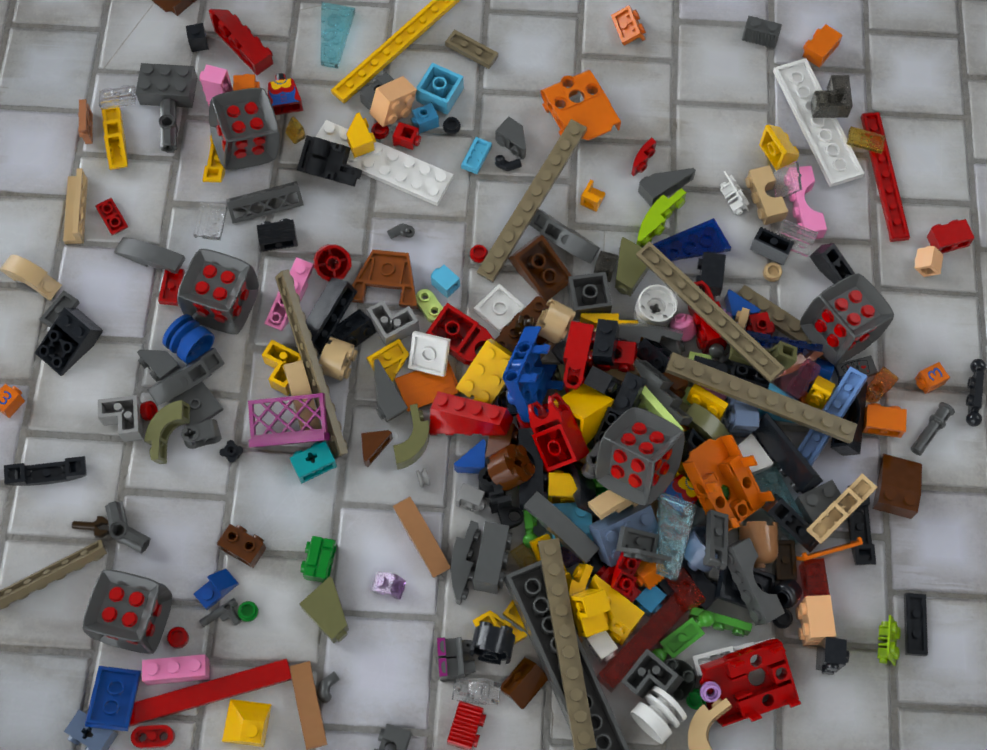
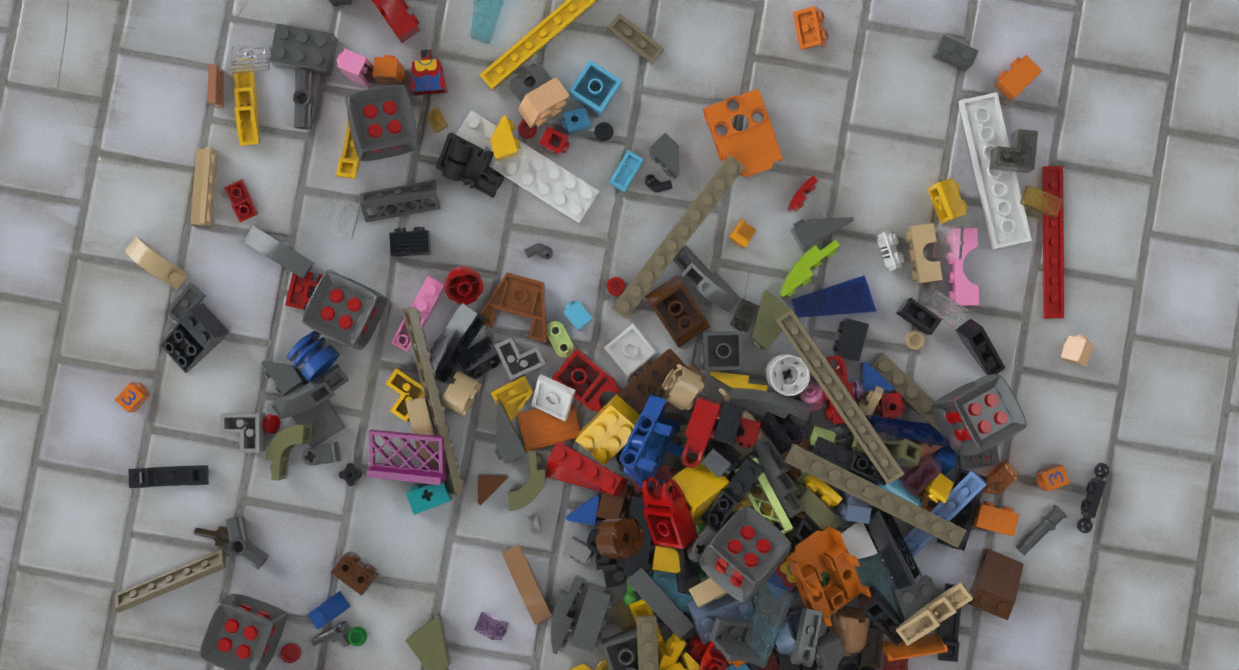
camera: 10 degrees right, 20 degrees up
(319, 559) = (428, 595): green brick -> none
(951, 236) = (1106, 324): red brick -> none

